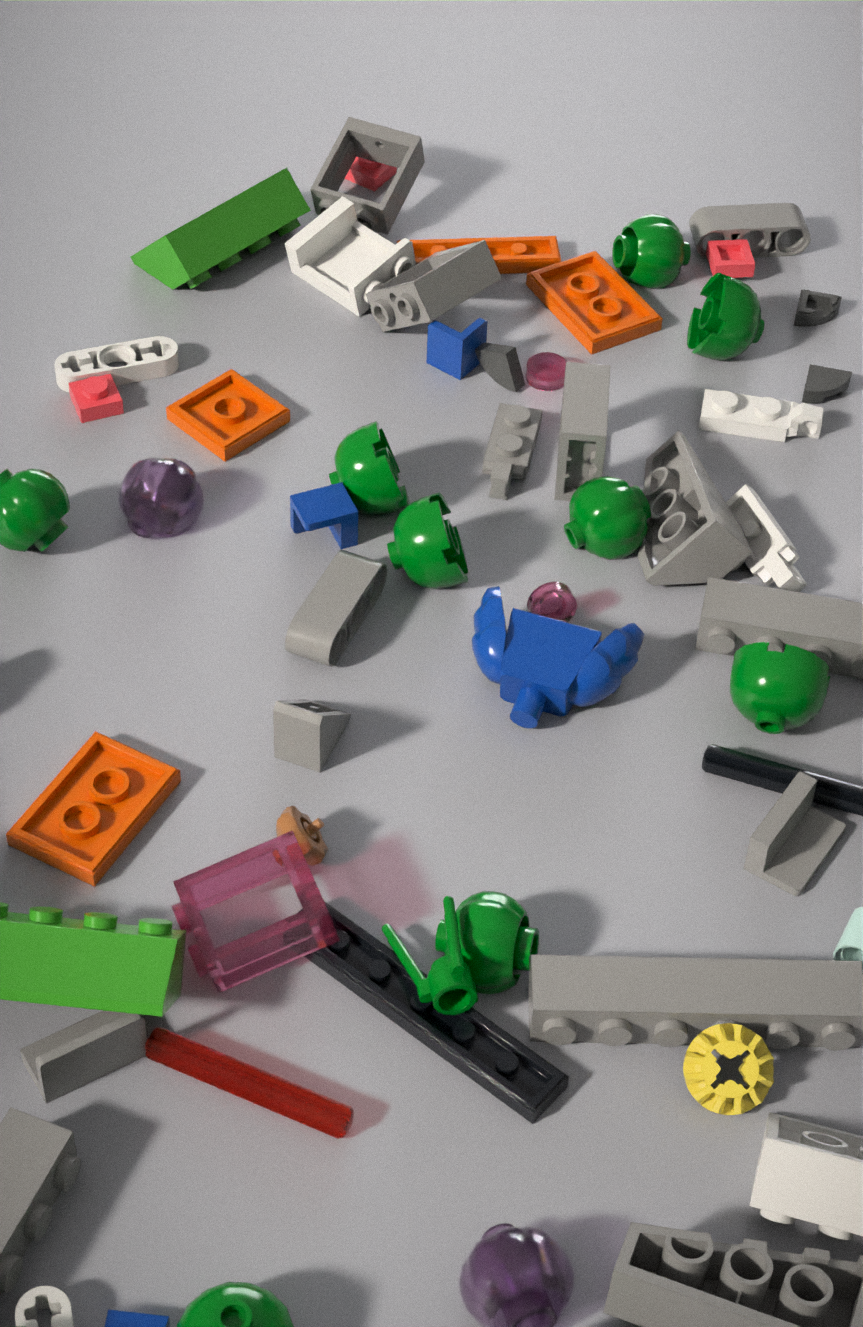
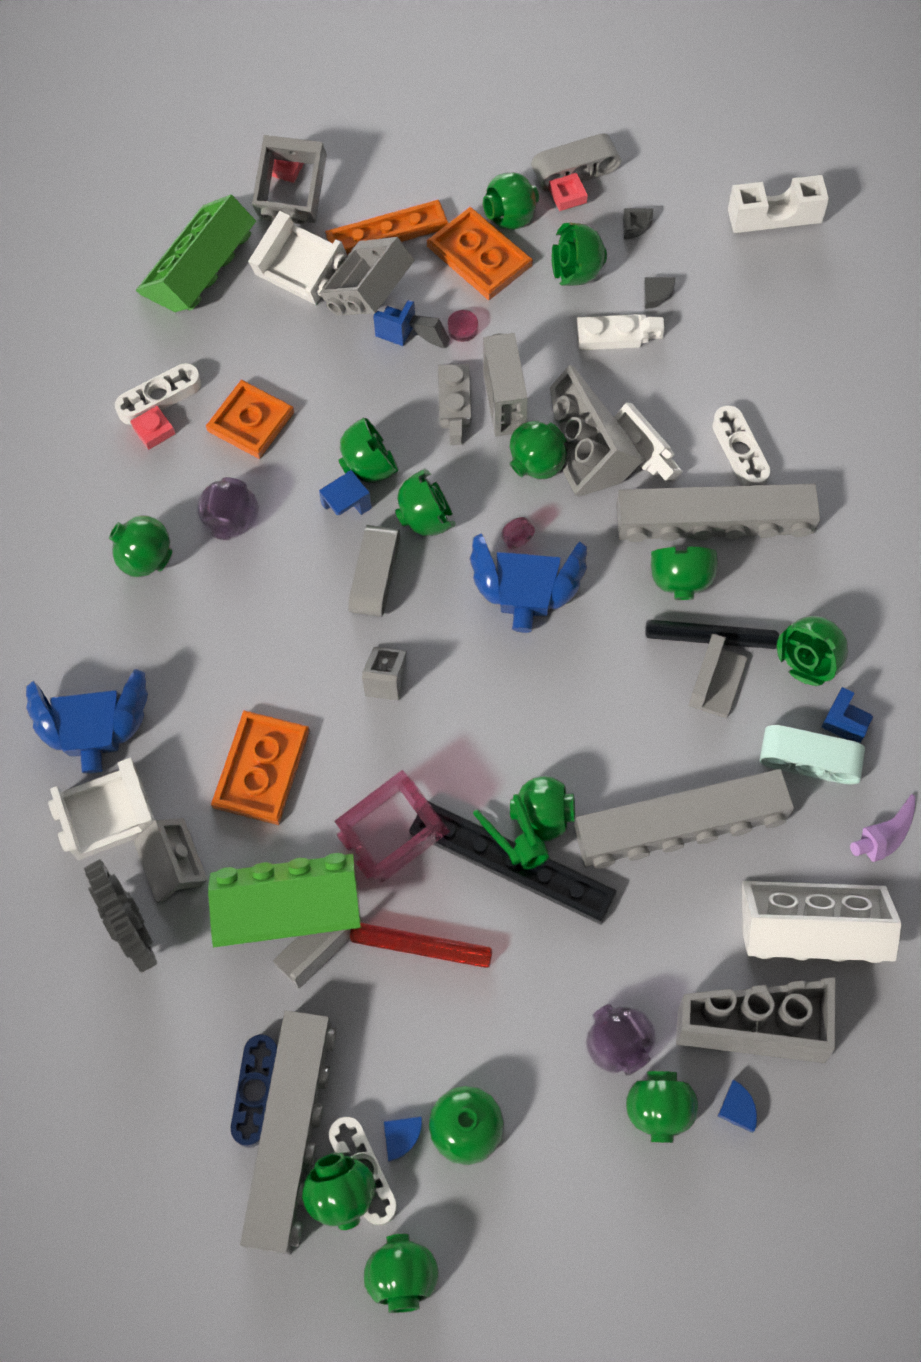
camera: 10 degrees left, 20 degrees up
(306, 833) = (402, 757): medium nougat piece -> none
(701, 1069) = (712, 846): light yellow gear -> none

